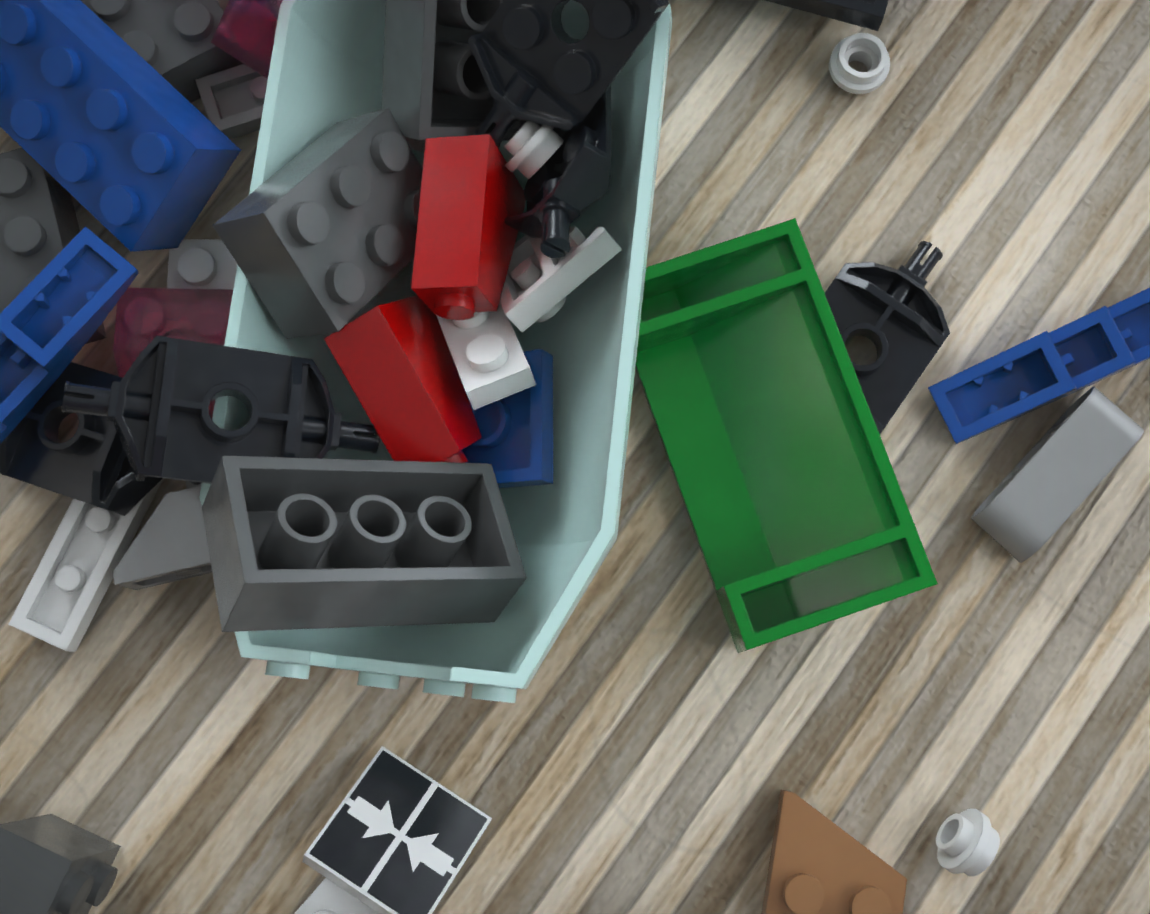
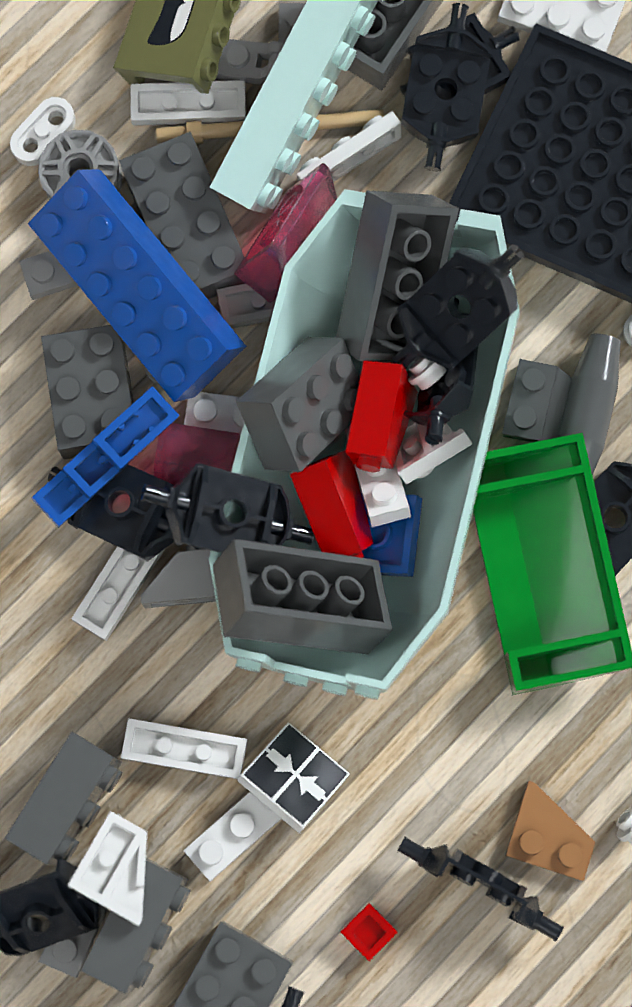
camera: 10 degrees right, 0 degrees up
(214, 814) = (184, 748): none -> white plate
(738, 186) = (554, 405): none -> dark grey plate

